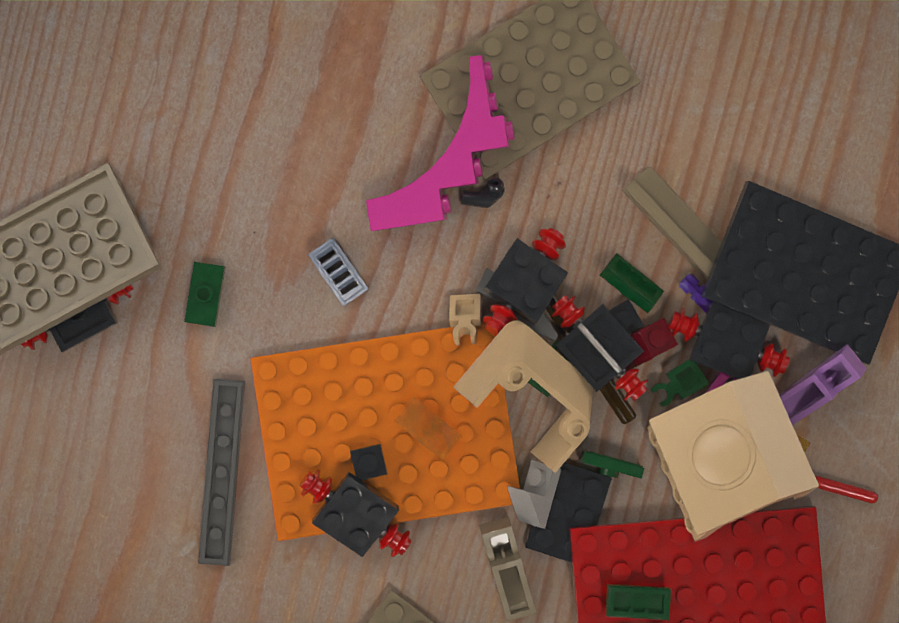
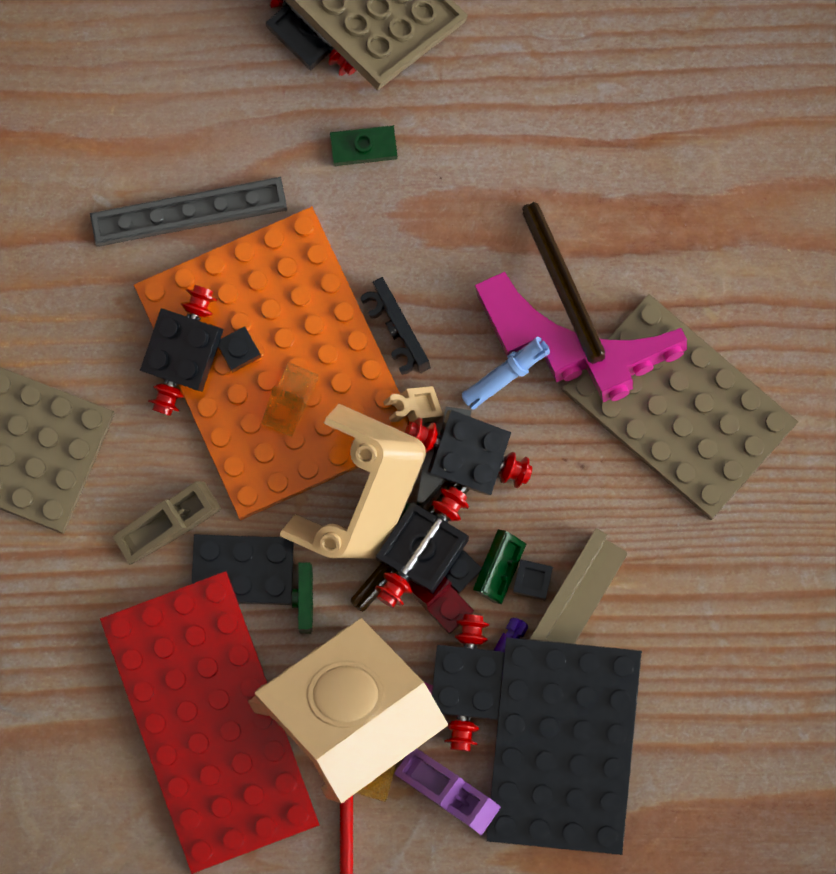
camera: 70 degrees right, 10 degrees down
(322, 250) = (442, 246): sand blue slope -> none
(386, 312) = (397, 327): none -> black plate
(392, 150) = (563, 283): none -> dark brown axle
(457, 214) = (514, 366): none -> light blue pin
(486, 196) = (544, 395): black arm -> none
(535, 500) = (244, 529): light grey slope -> none
(638, 601) = (168, 658): dark green plate -> none
(651, 257) = (532, 580): none -> black plate
(683, 379) = (413, 648): dark green plate -> none

